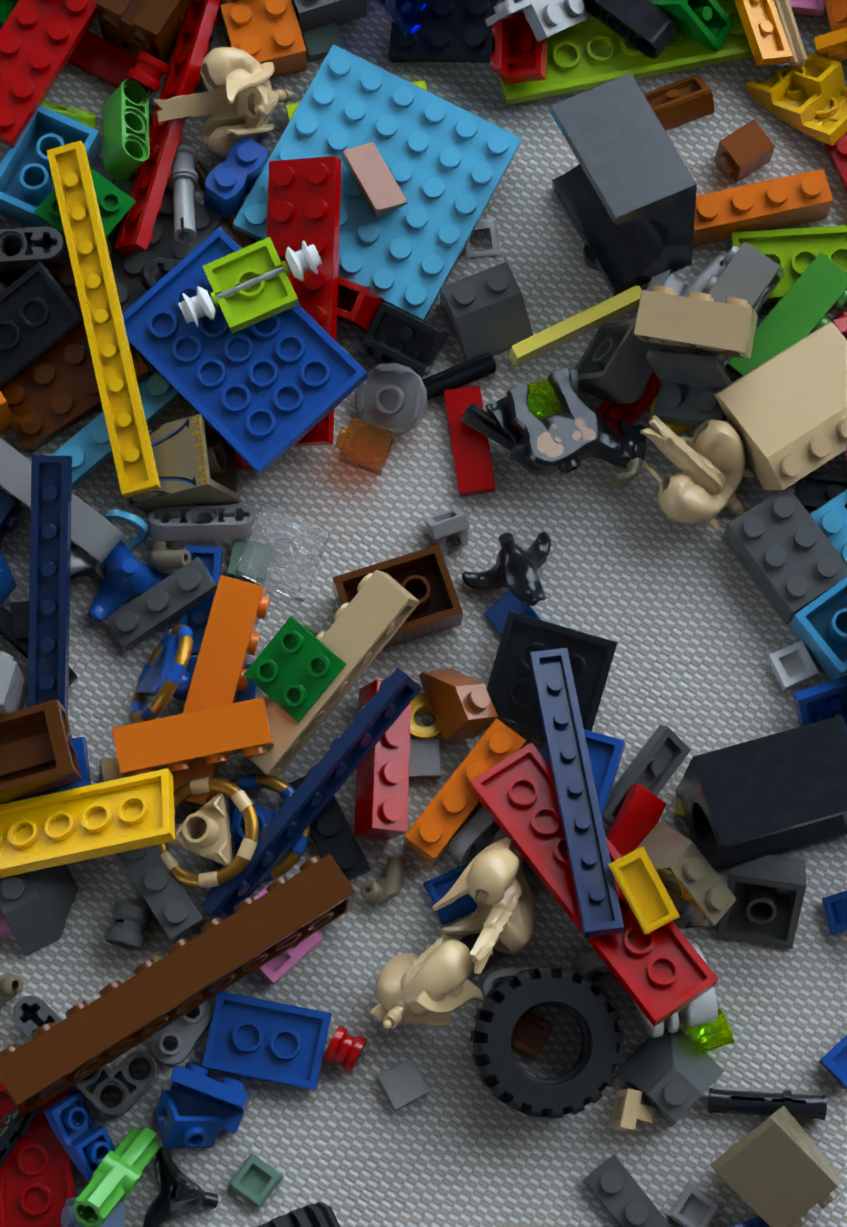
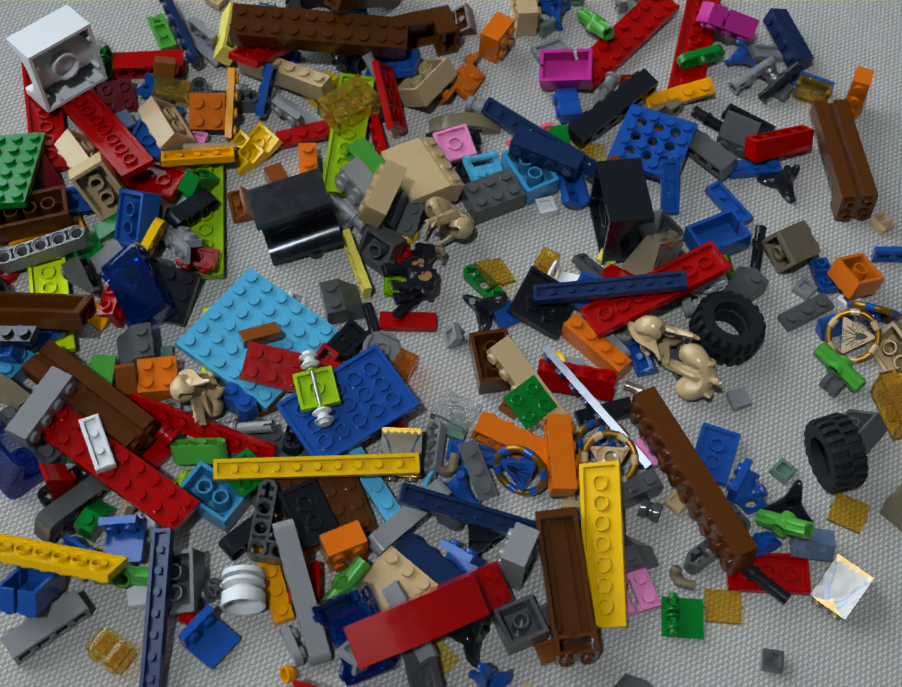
camera: 80 degrees left, 15 degrees down
(344, 1049) = (721, 418): red wheel -> none
(458, 703) = (554, 336): dark orange slope -> none
(601, 555) = (471, 280): none -> green beam
(607, 583) = (494, 272): none -> clear yellow piece
(619, 715) = (561, 276): none -> white bracket
(629, 1111) = (761, 302): tan tile -> none
(643, 890) = (667, 260): yellow tile -> none
(645, 678) = (546, 259): none -> clear yellow brick
(775, 1011) = (720, 230): none -> blue piece

